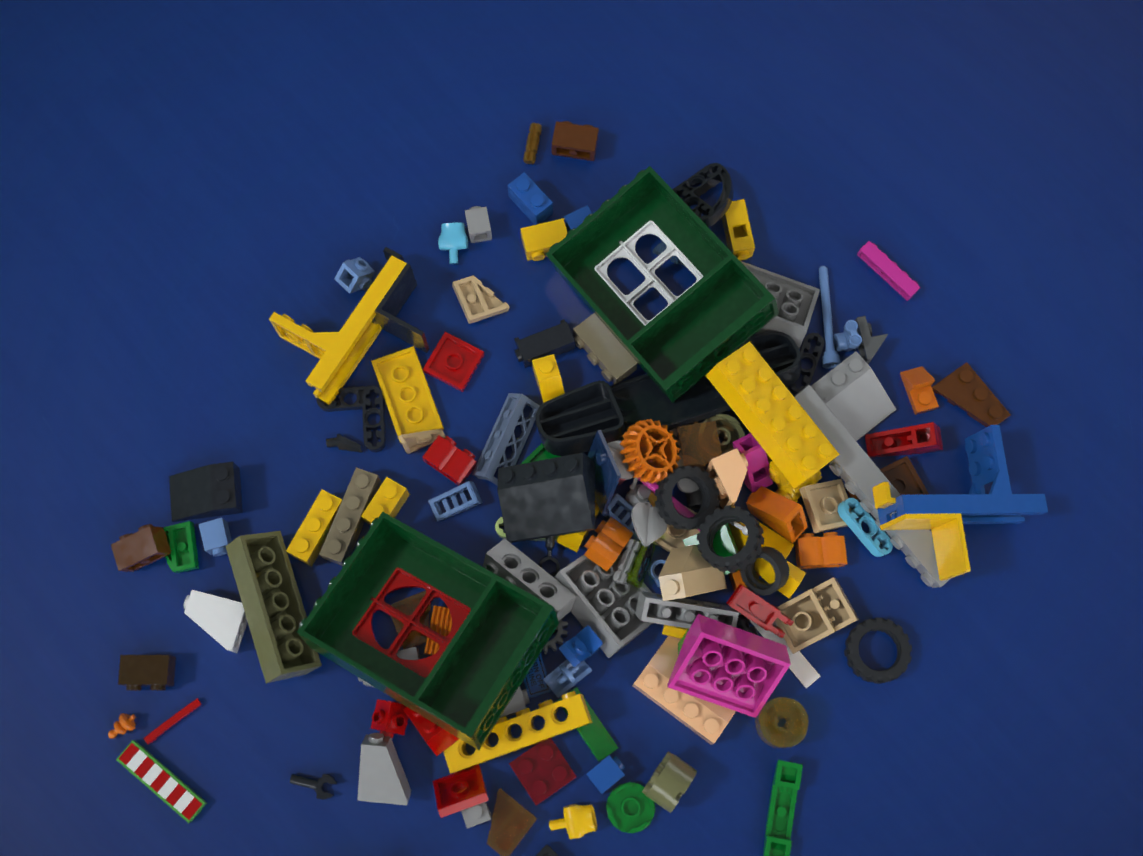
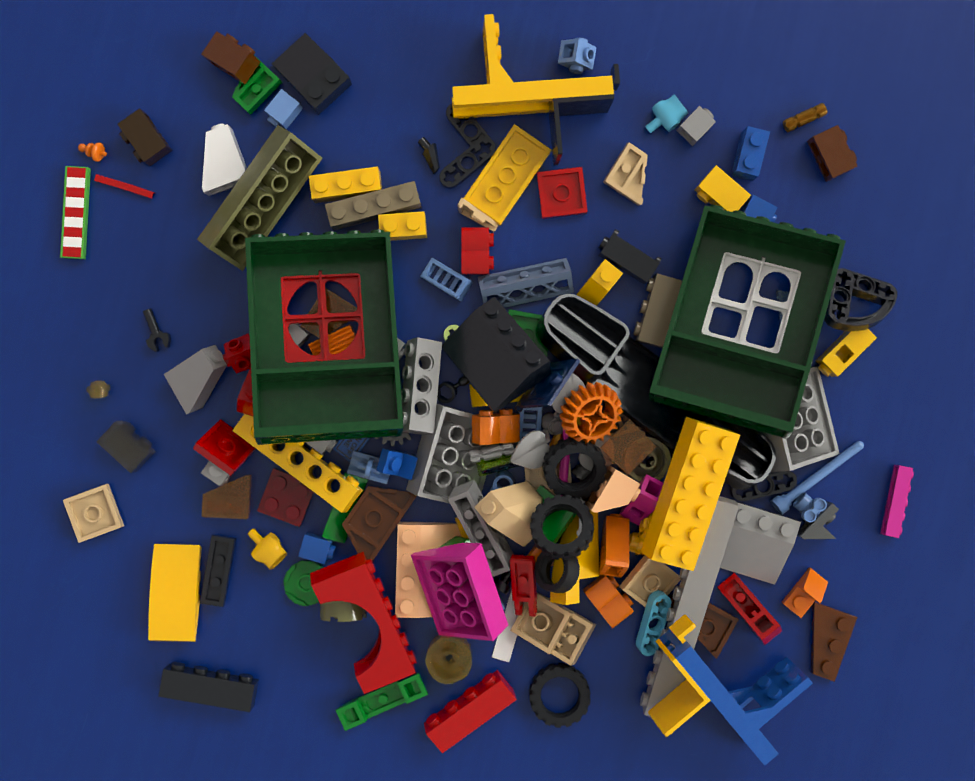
camera: 55 degrees right, 15 degrees up
(616, 704) = (376, 518): none -> reddish brown wing
(658, 750) = (355, 583): none -> red arch
(841, 738) = (469, 711): none -> red brick

